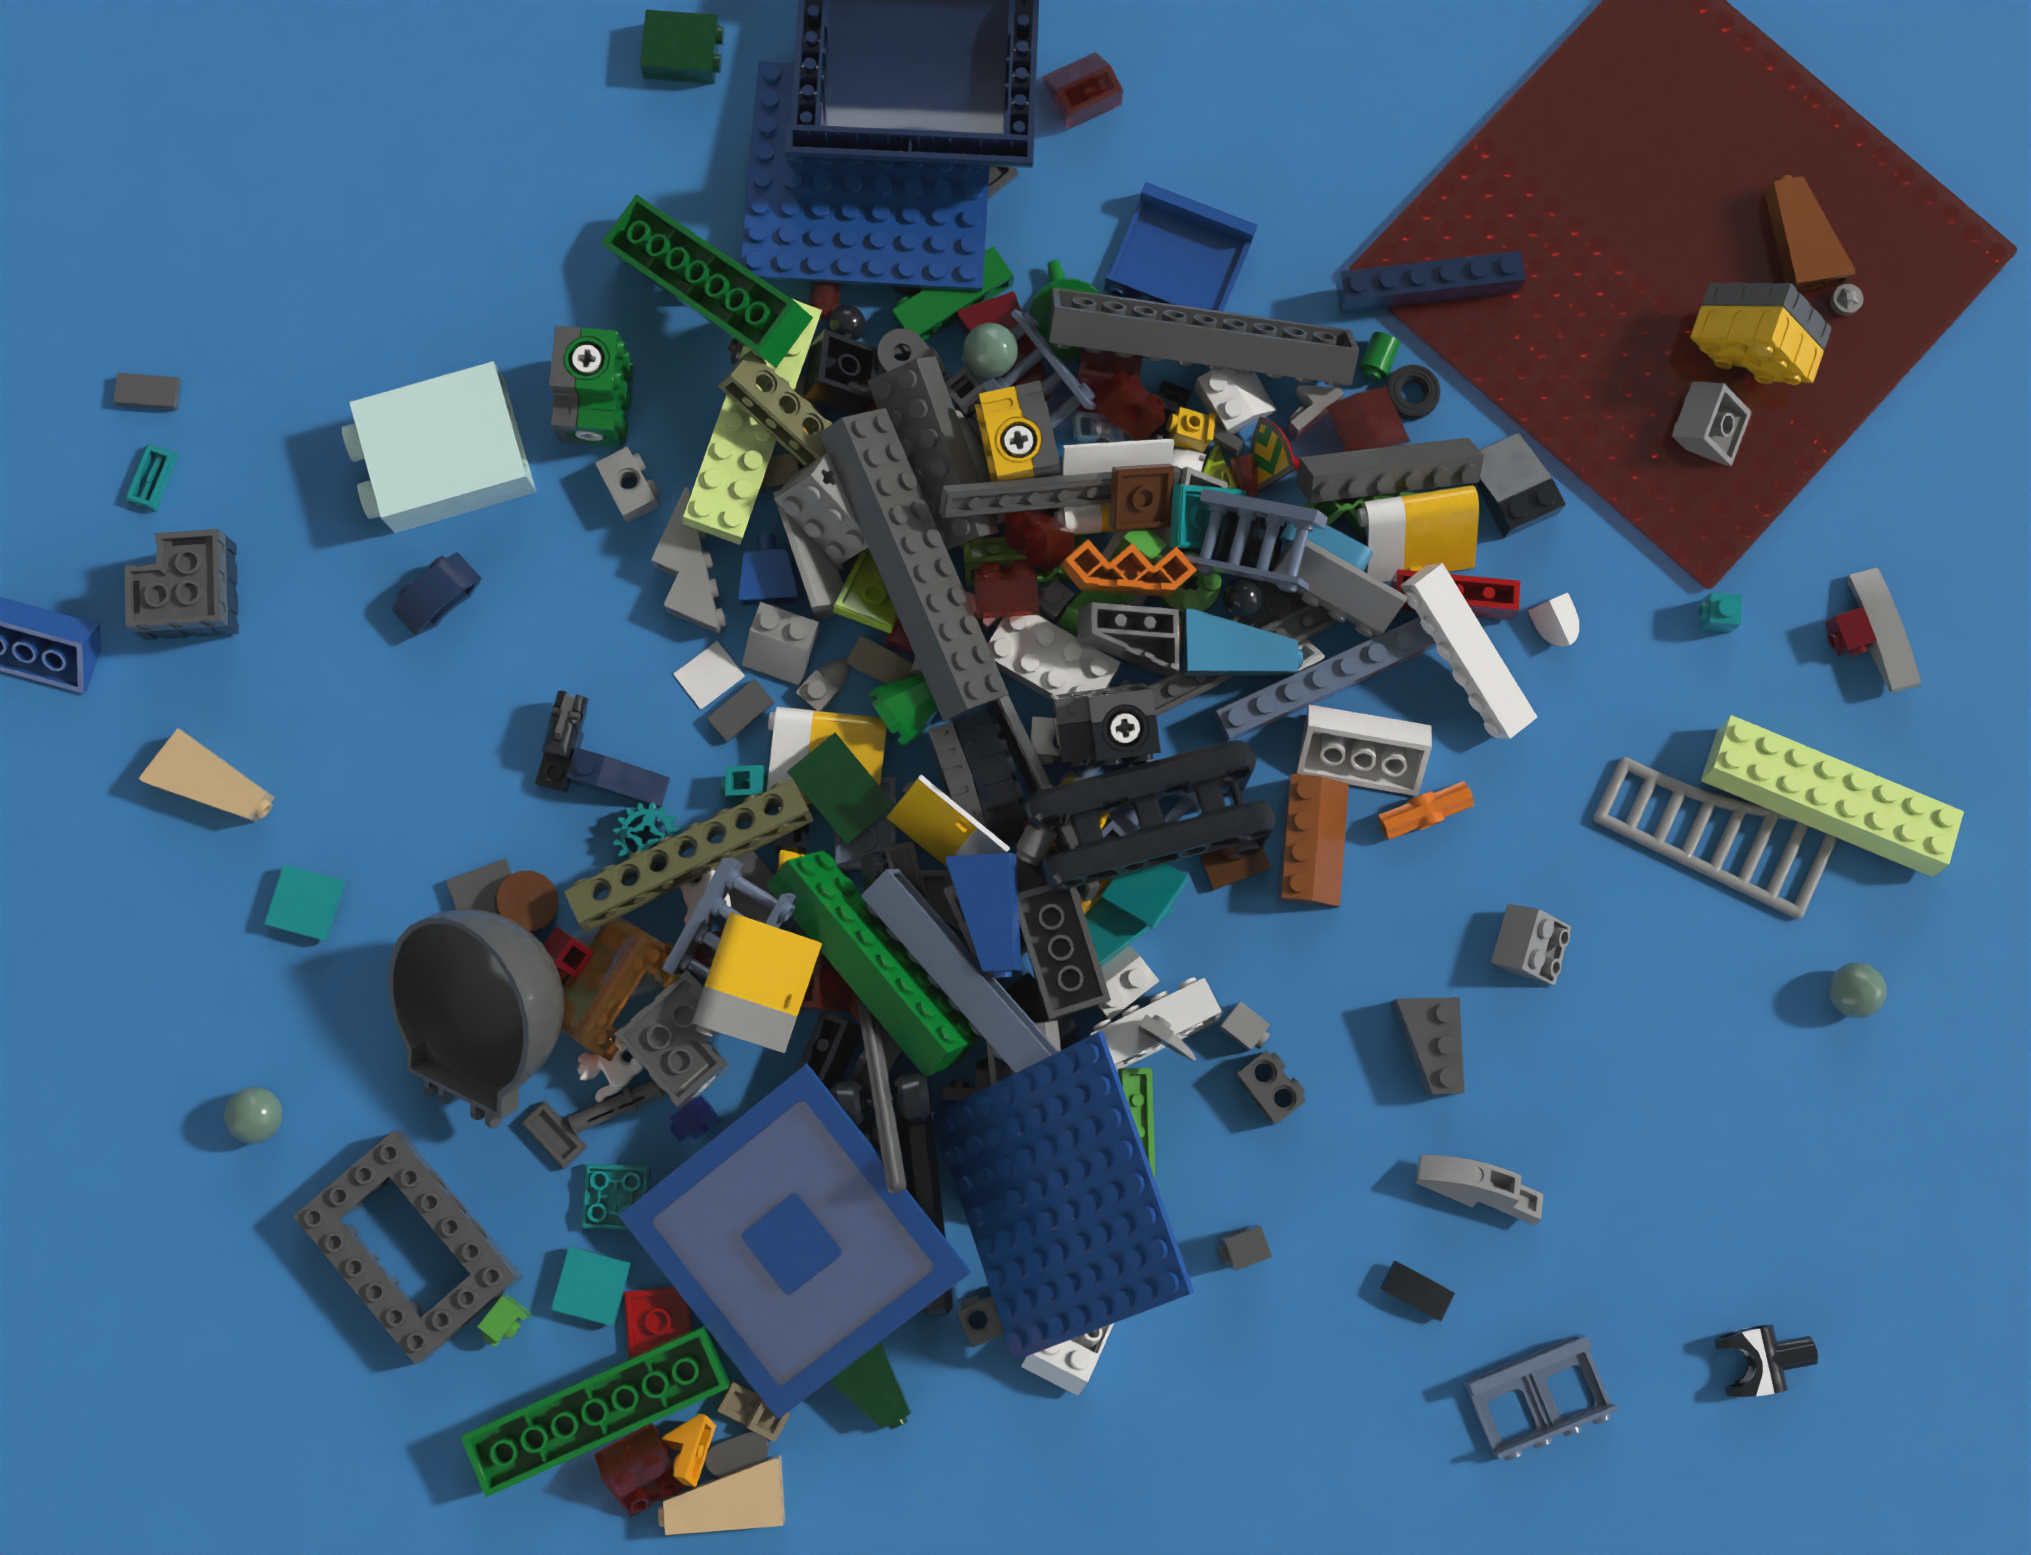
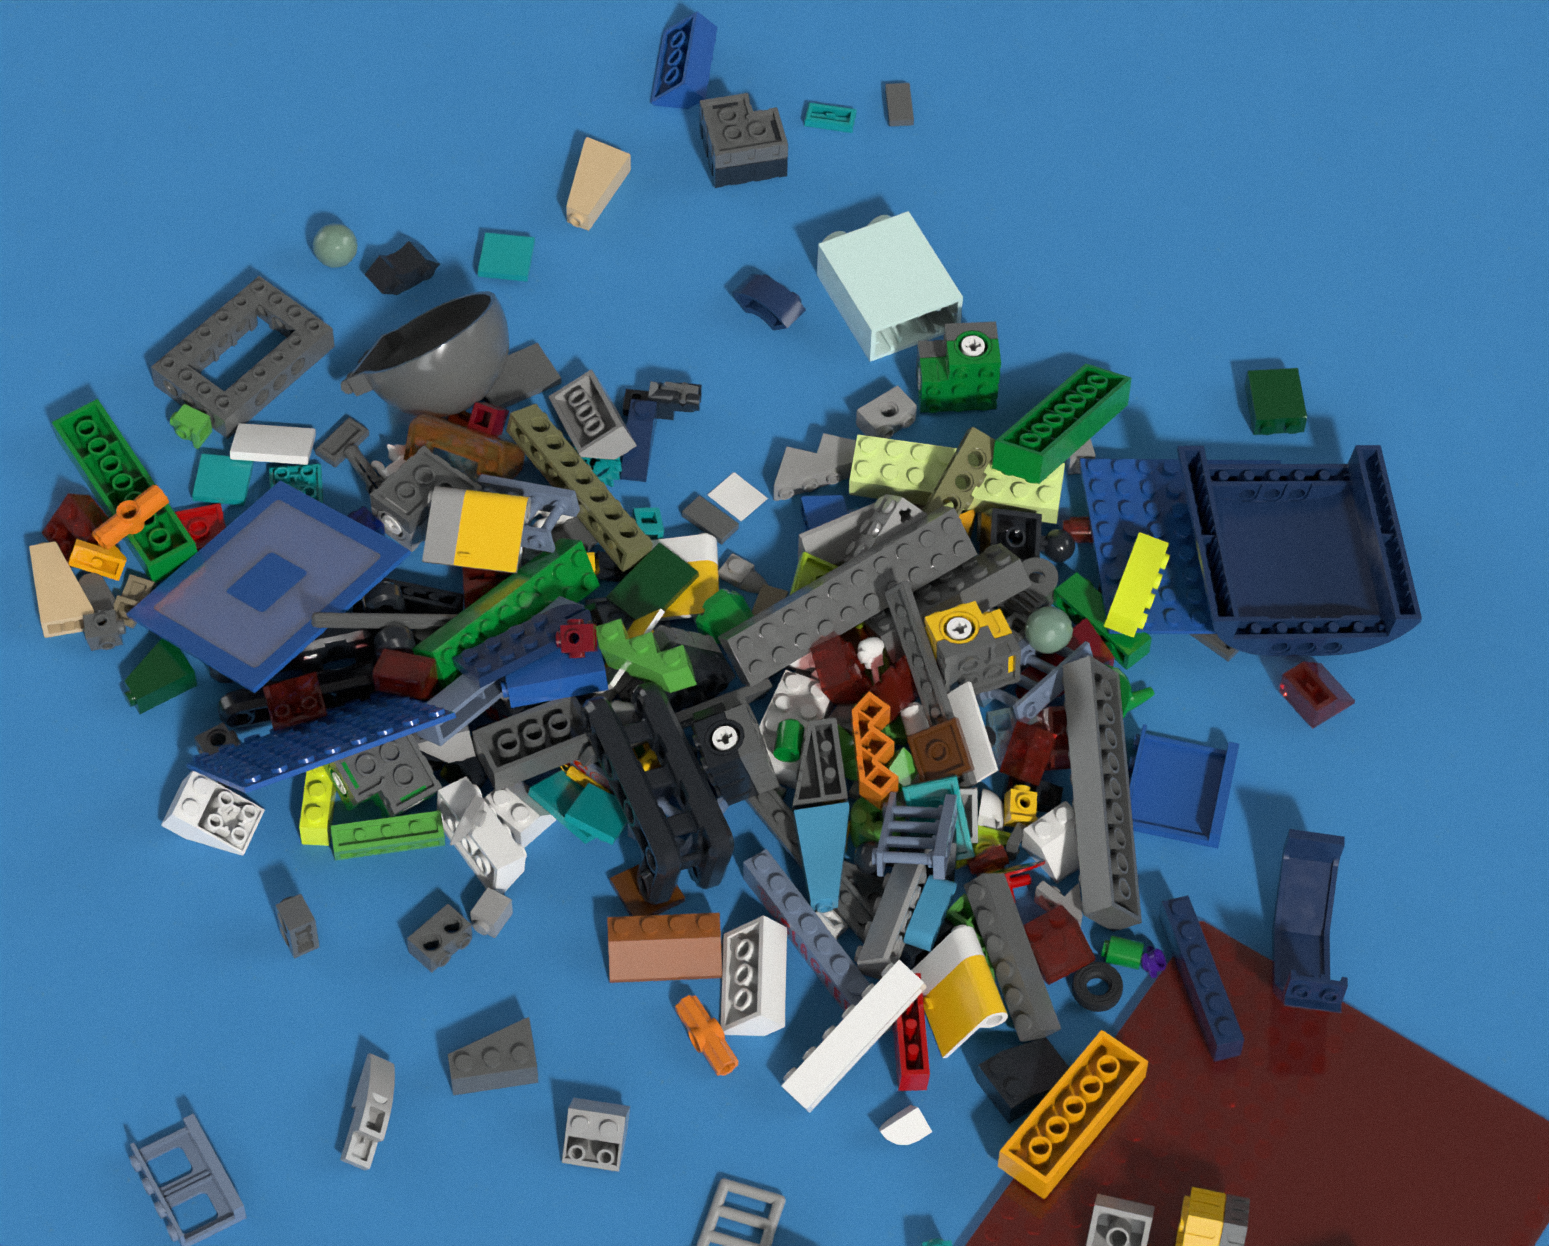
camera: 85 degrees right, 25 degrees down
(305, 1033) = (402, 269): none -> black brick
(527, 899) = (525, 389): reddish brown tile -> none
(549, 1220) = (272, 444): none -> white tile
(588, 827) = (592, 419): none -> light grey slope
(671, 1424) = (139, 510): none -> orange piece
(780, 644) = (772, 536): light grey slope -> none
(801, 1458) = (104, 629): none -> dark grey brick
(935, 244) = (1136, 585): none -> neon yellow brick
(946, 943) = (518, 645): none -> dark blue plate
(962, 1088) = (406, 675): none -> clear red slope
(968, 878) = (587, 638): none -> dark red brick
(972, 1220) = (295, 701): none -> clear red slope
(992, 552) = (871, 655): none -> white piece
(995, 806) = (643, 658): none -> bright green brick
(1090, 662) = (788, 740): none -> green brick
(1395, 327) = (1153, 961): none -> dark purple plate
(1405, 174) = (1304, 922): none -> dark blue panel
(1417, 1290) = (272, 1075): black slope -> none
(1579, 442) = (1072, 1114): none -> light orange brick

